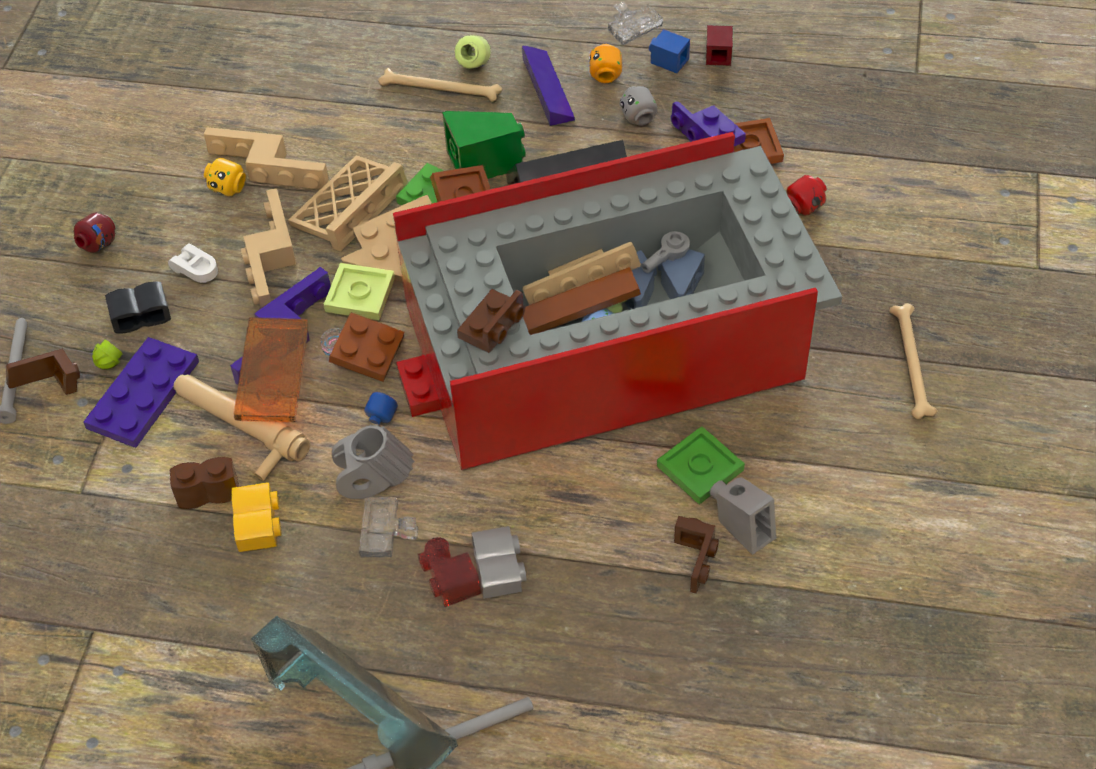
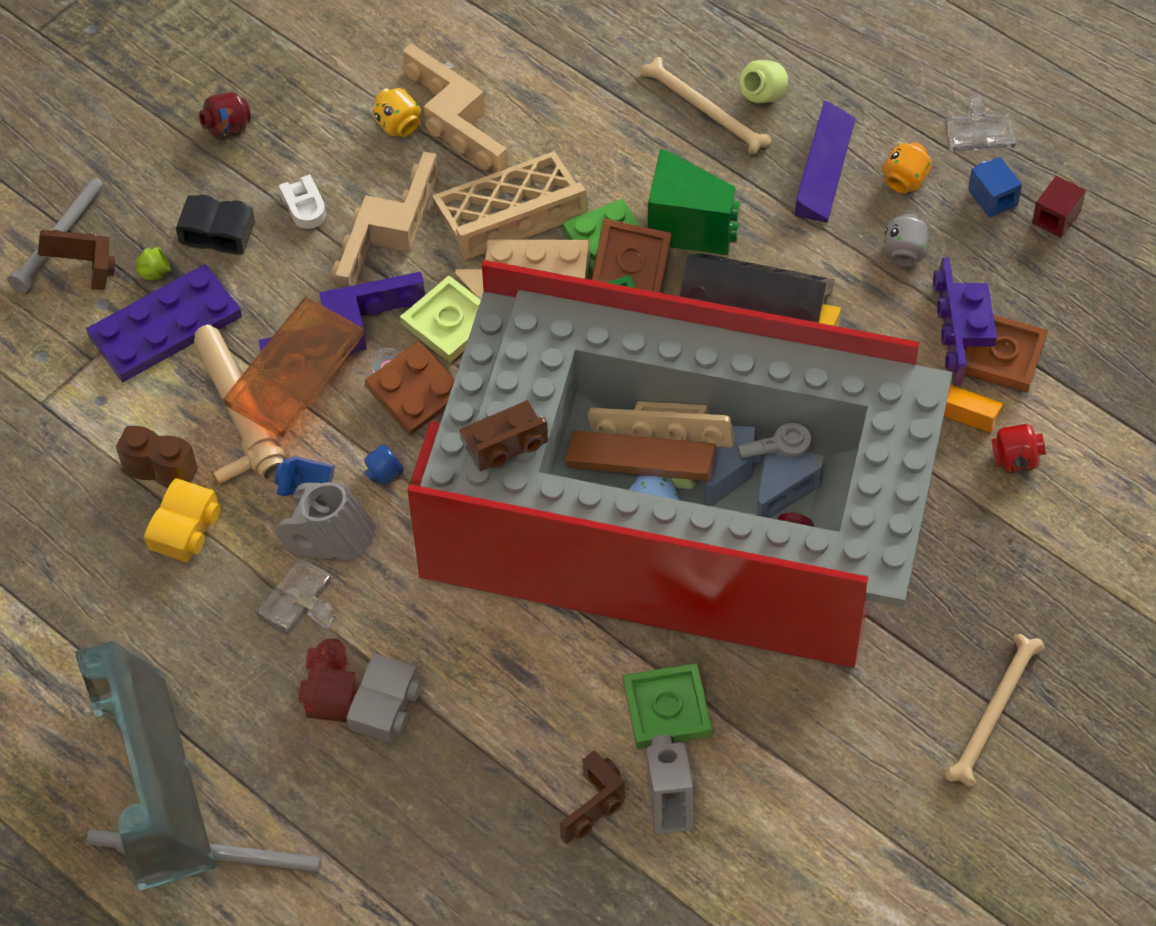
camera: 30 degrees right, 5 degrees up
(324, 440) = (299, 470): none -> blue bracket

